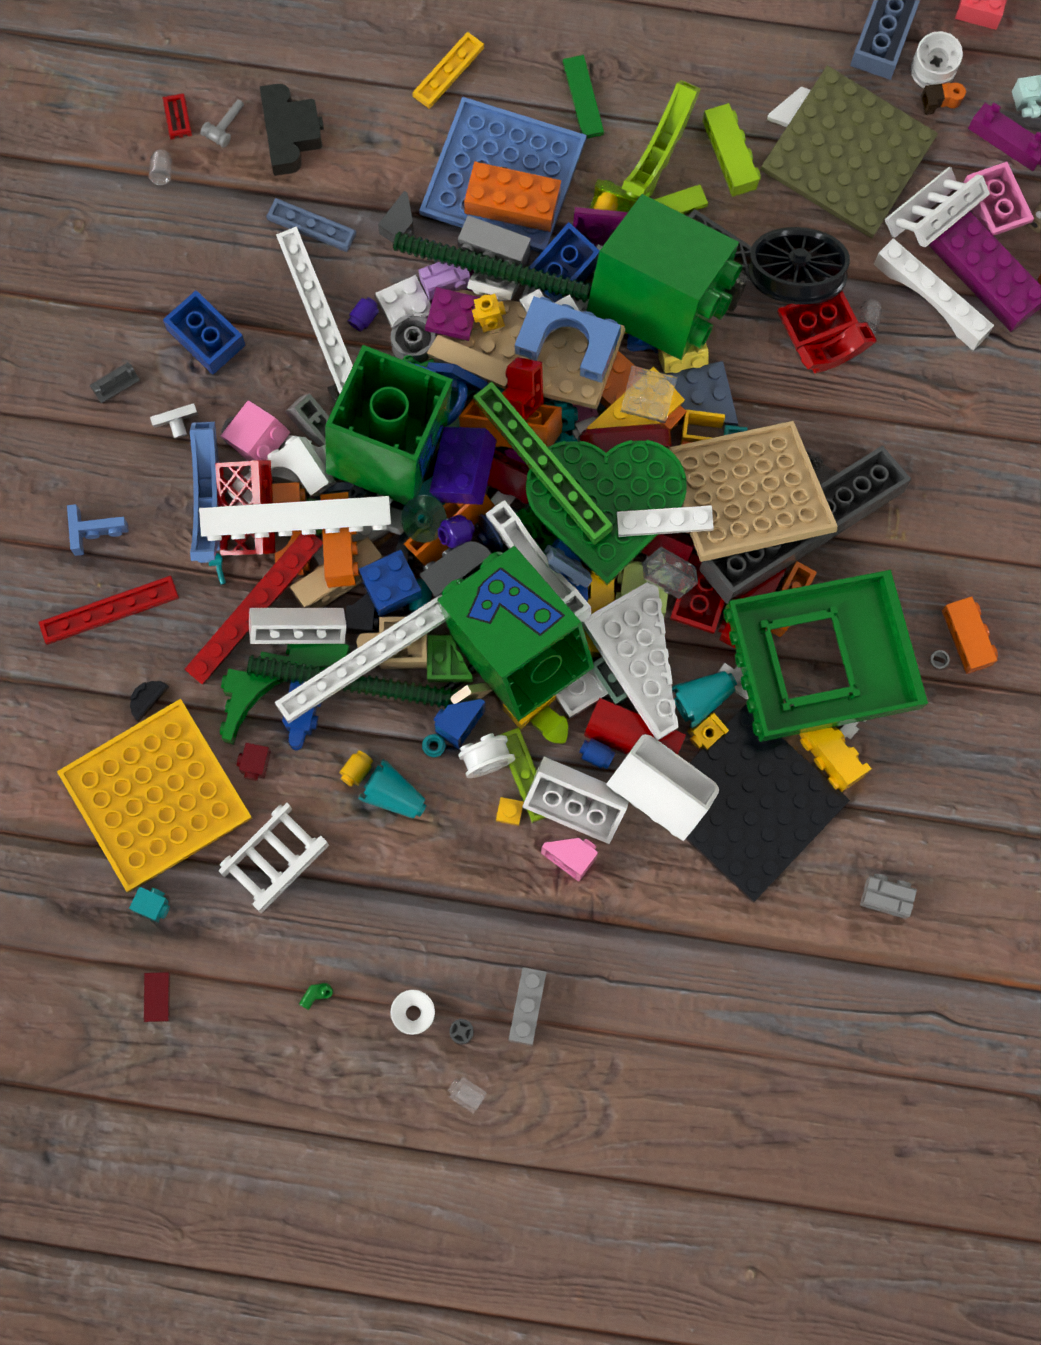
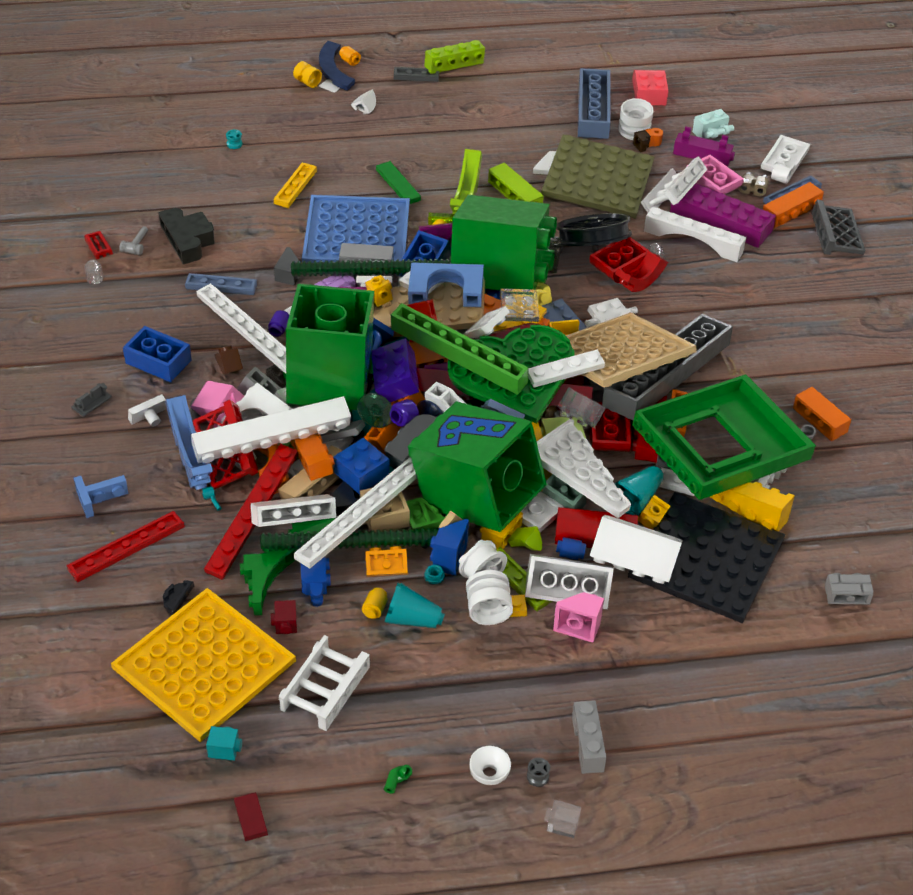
camera: 15 degrees left, 30 degrees down
(286, 361) = (228, 359): none -> reddish brown slope
(385, 715) = (386, 562): none -> light orange bracket
(479, 802) = (489, 597): none -> white wheel
(512, 196) = (371, 230): orange brick -> none
(595, 419) = (486, 323): none -> white plate
(773, 406) = (606, 311): none -> white plate

